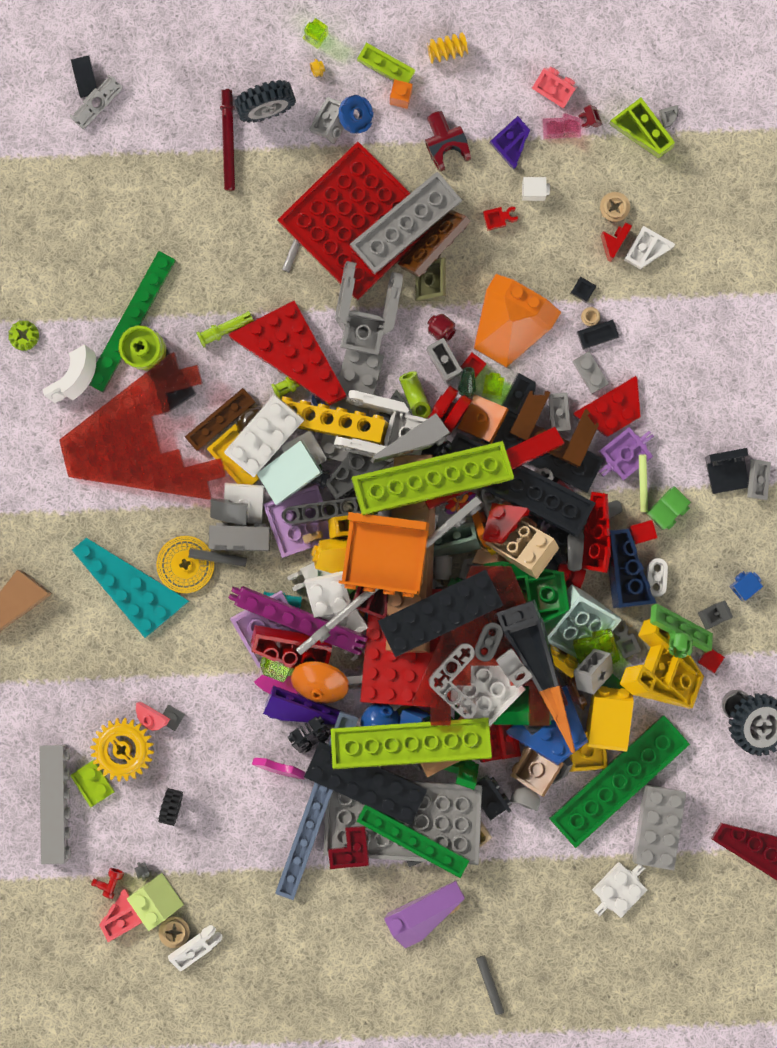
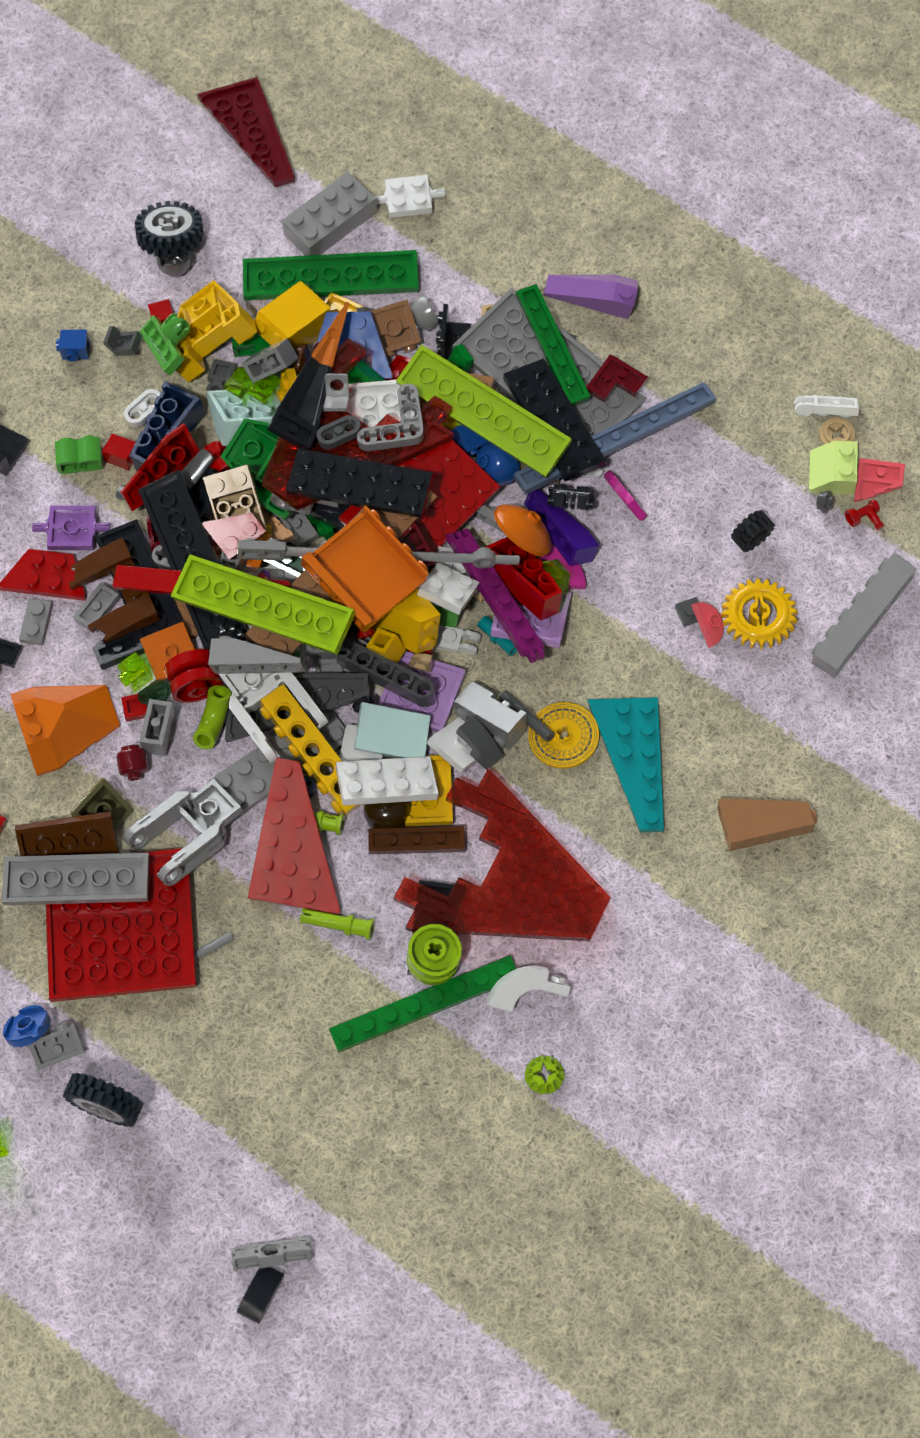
camera: 135 degrees left, 20 degrees down
(92, 783) = (813, 609): lime plate -> none
(228, 139) = (172, 1108): dark red axle -> none
(317, 68) = (21, 1108): yellow plate -> none
(490, 985) = (586, 203): dark grey piece -> none
(643, 483) = (80, 490): yellowish green bar -> none

